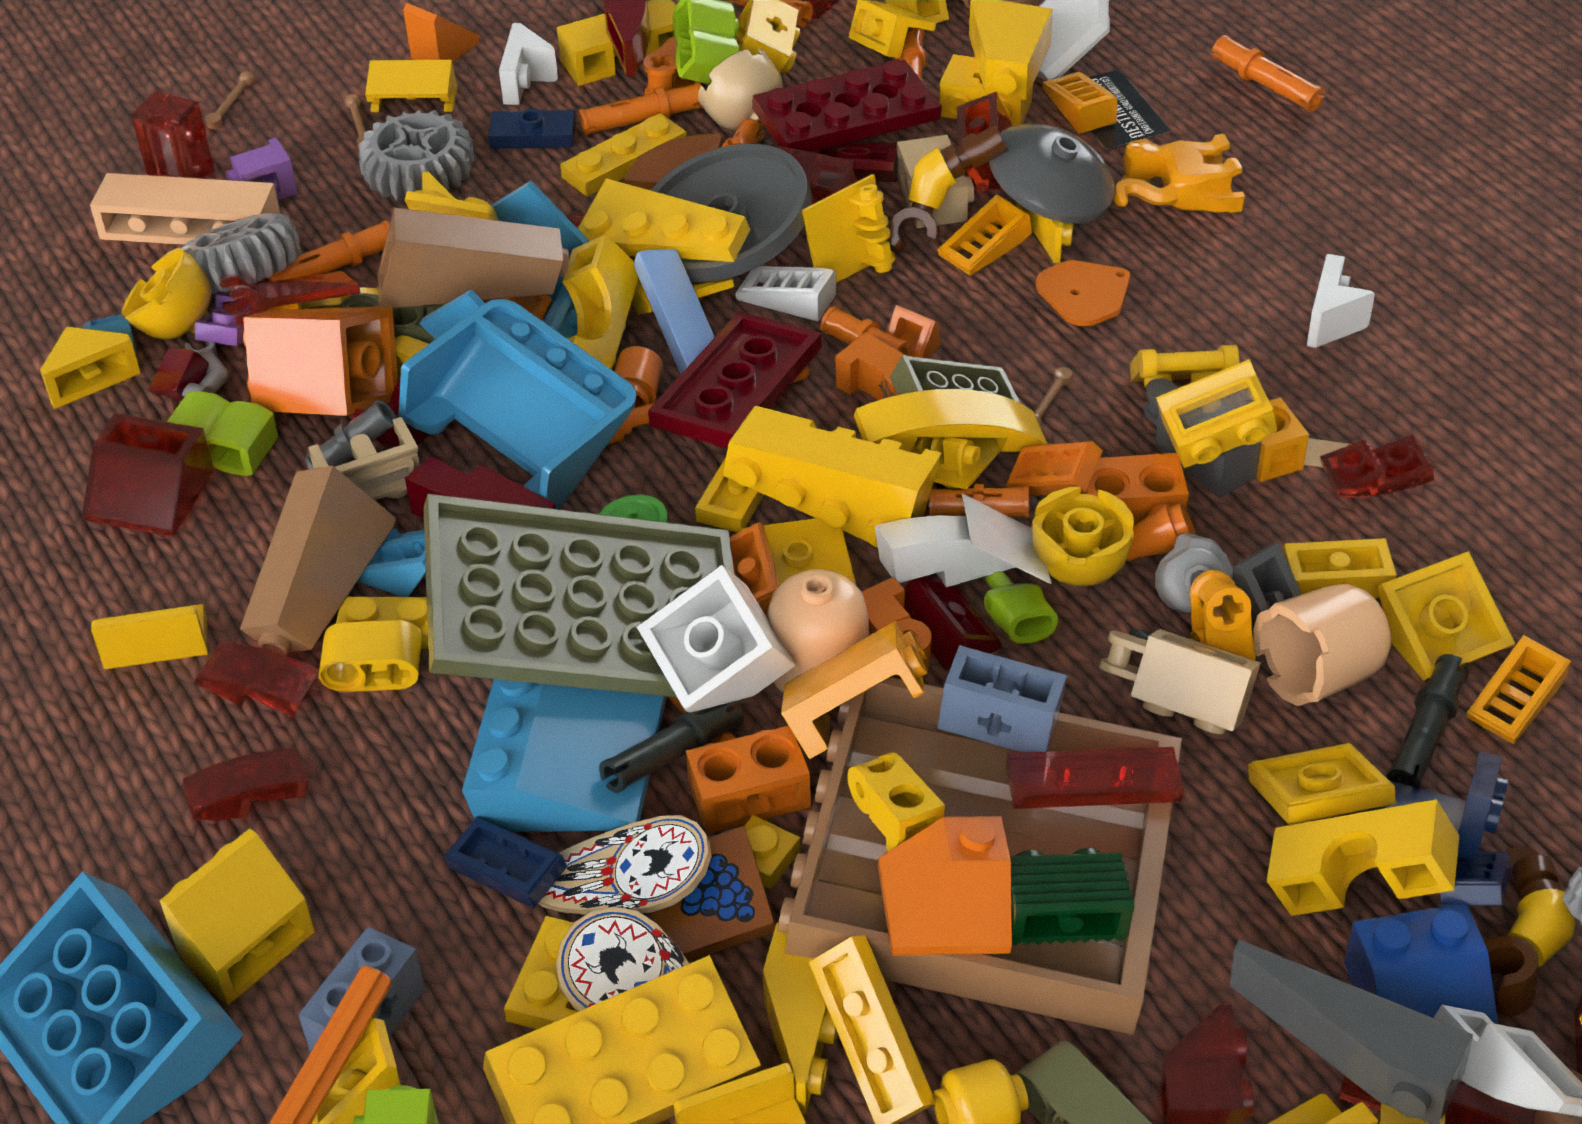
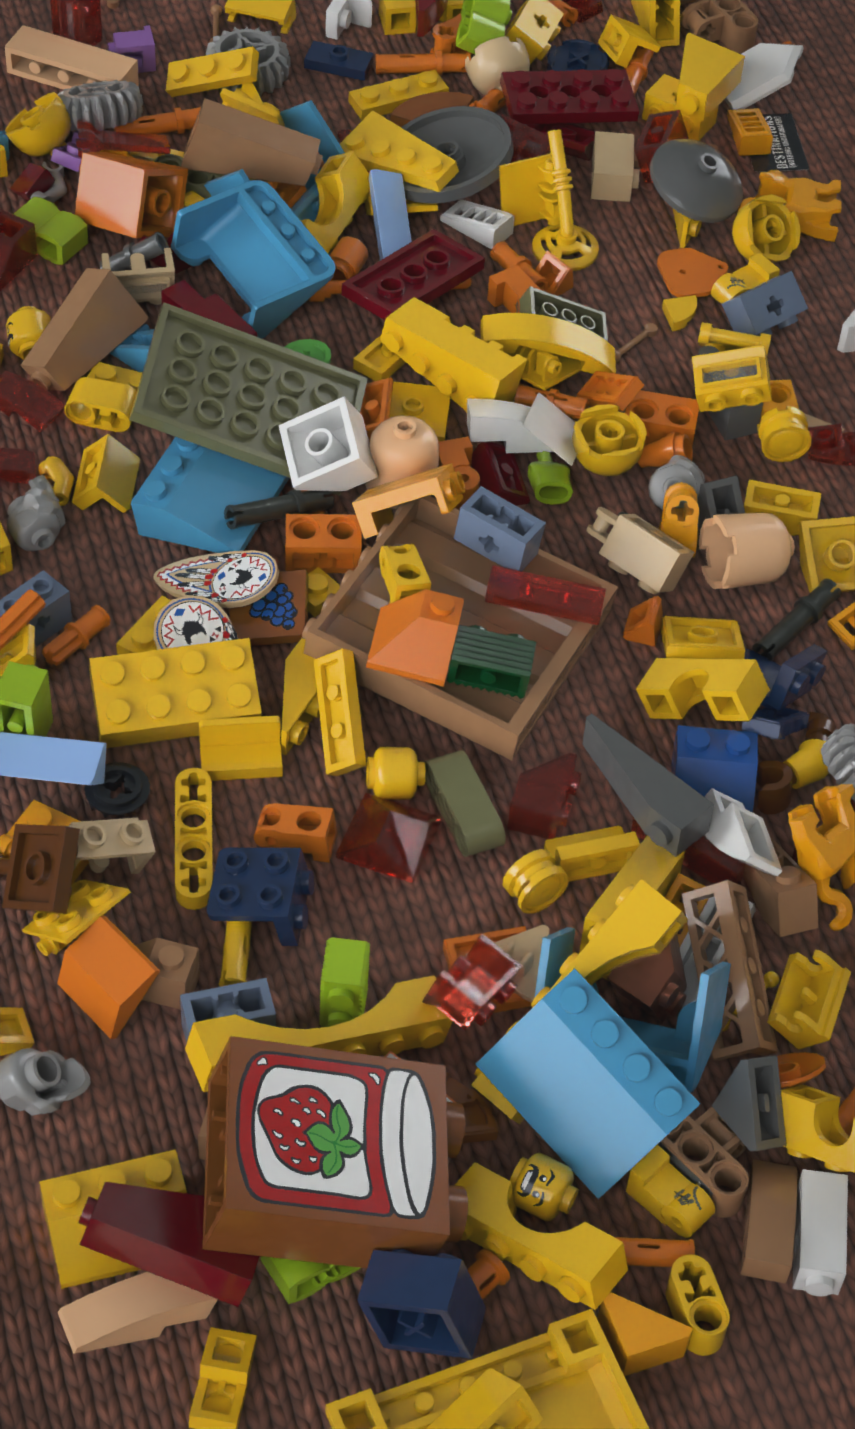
camera: 10 degrees right, 5 degrees up
(232, 576) = (25, 328): none -> yellow head
(328, 845) = (36, 516): none -> light grey head
(349, 779) = (64, 480): none -> yellow arm
(377, 177) = (212, 71): none -> yellow plate
(407, 755) = (106, 472): none -> yellow panel
(440, 1011) = (76, 635): none -> orange axle
(505, 862) = (147, 555): dark blue plate -> none
(830, 58) = (577, 55): none -> dark blue tile
(910, 277) = (567, 231): none -> yellow dish
(937, 174) = (609, 162): reddish brown piece -> none
(996, 212) = (643, 203): light orange slope -> none
(1091, 343) = (679, 311): none -> yellow tile
(1162, 216) = (766, 228): none -> yellow cylinder
(1164, 289) = (755, 273): none -> yellow leg
(1203, 310) = (766, 306): none -> sand blue brick
(1226, 778) = (644, 622): none -> orange slope
(1301, 471) = (784, 434): none -> yellow wheel

